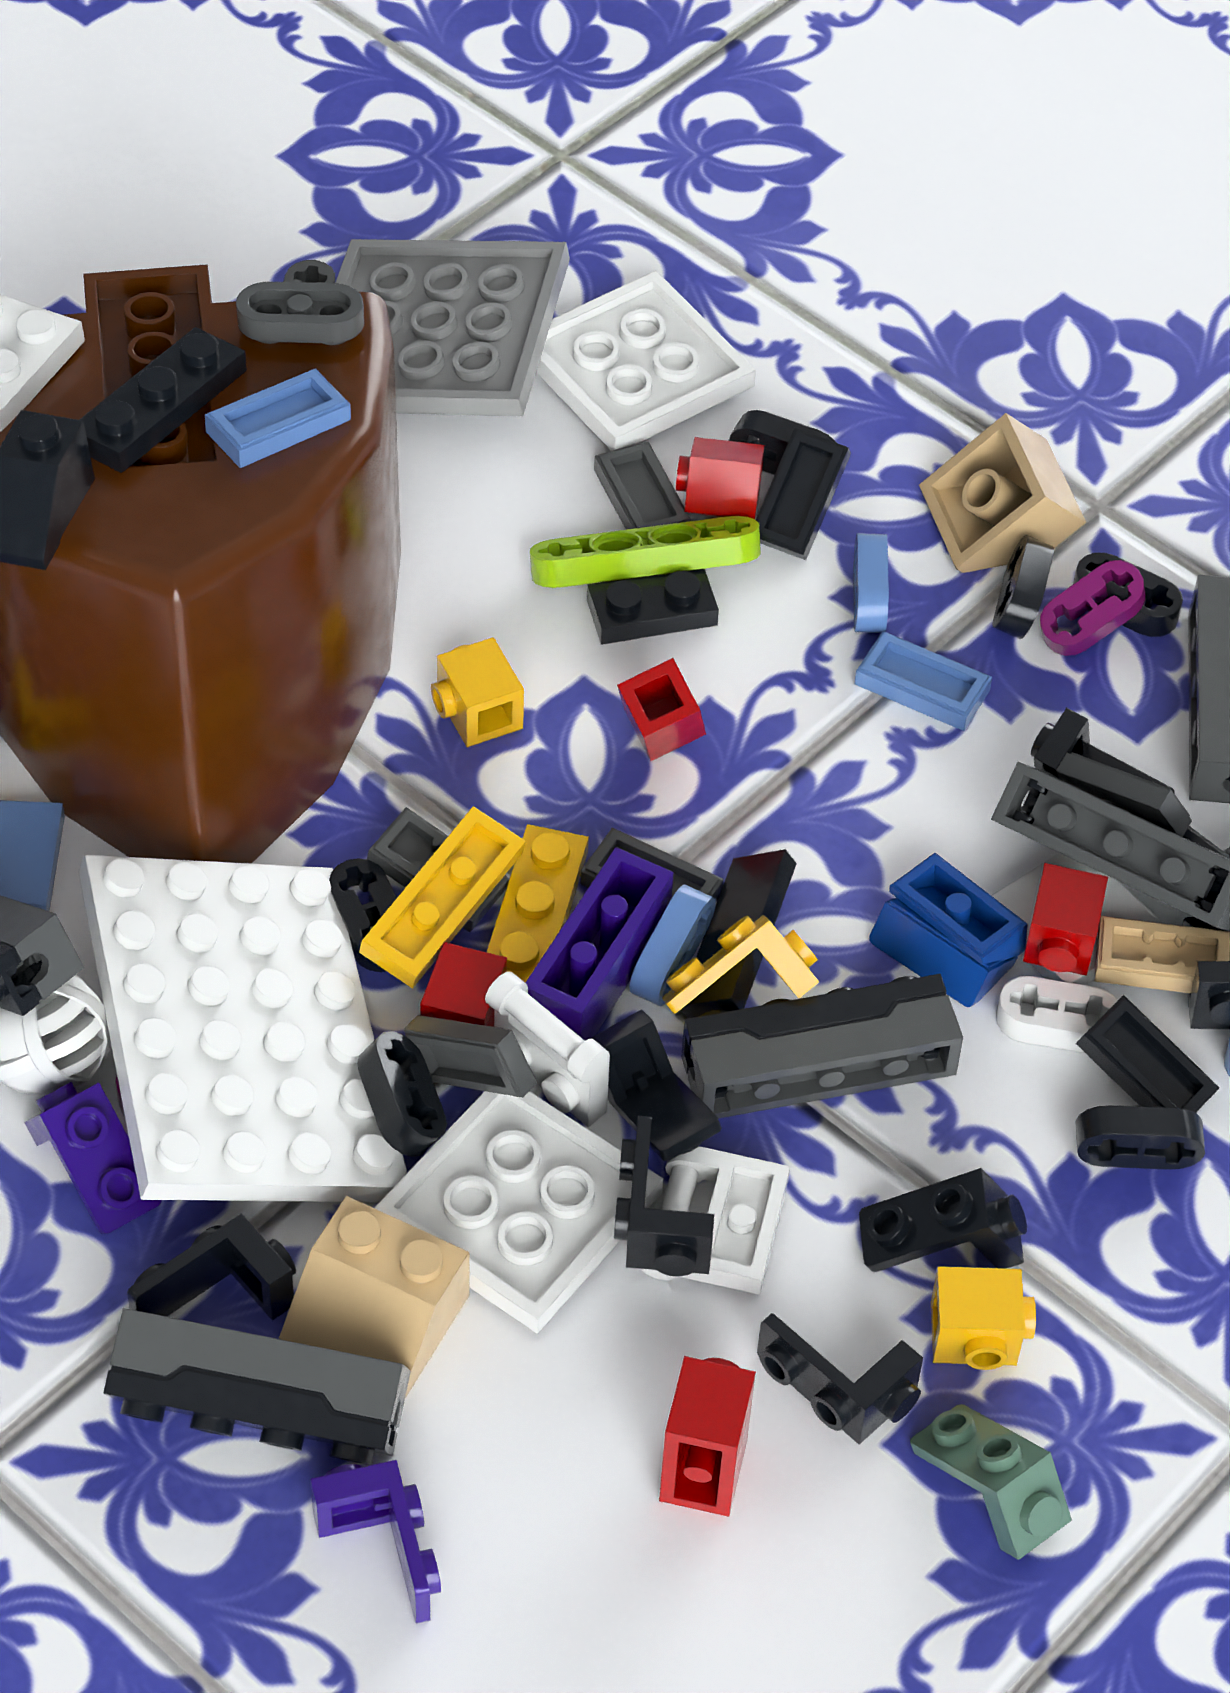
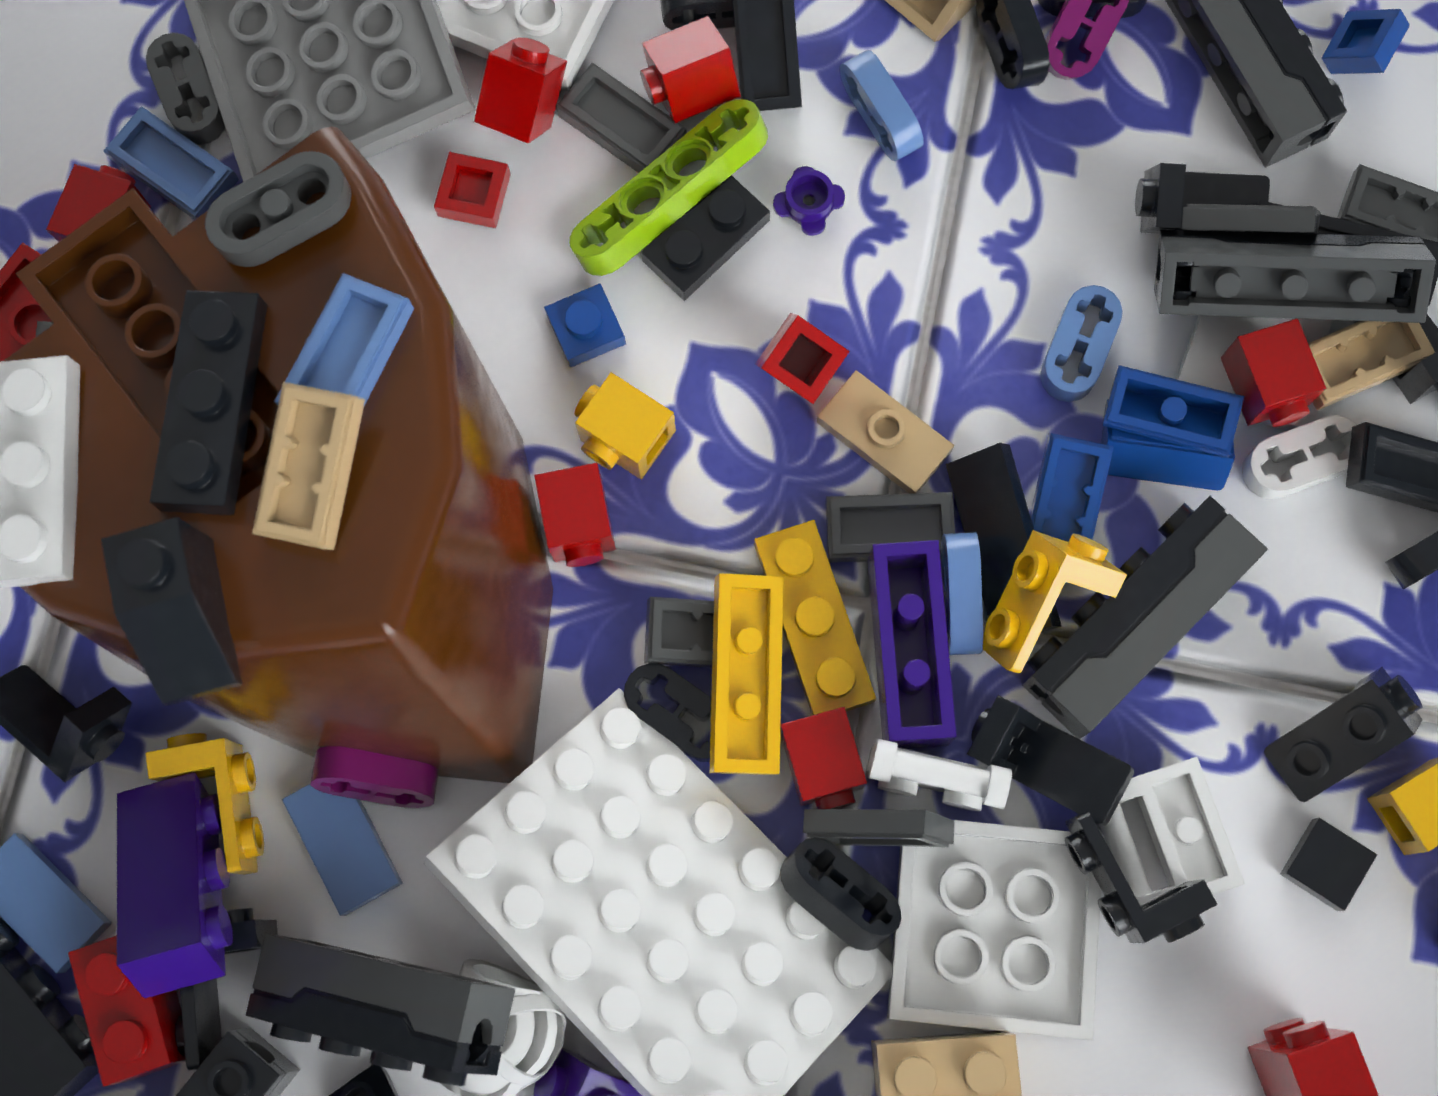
camera: 25 degrees left, 25 degrees up
(83, 812) = (374, 777): none -> magenta beam
(197, 458) = (308, 466): none -> tan plate
(391, 729) = (575, 514): none -> red brick
(481, 477) = (472, 190): none -> red plate
(503, 614) = (585, 325): none -> blue plate
(571, 422) = (520, 89): none -> red brick
(698, 812) = (884, 433): none -> tan plate
(759, 619) = (812, 183): none -> dark purple plate
(829, 922) = (1070, 487): none -> blue plate
(853, 1322) = (1328, 864): none -> black tile
(857, 1408) = (1402, 931): black bracket -> none
(915, 828) = (1094, 348): none -> medium blue beam
(923, 680) = (982, 178): medium blue tile -> none

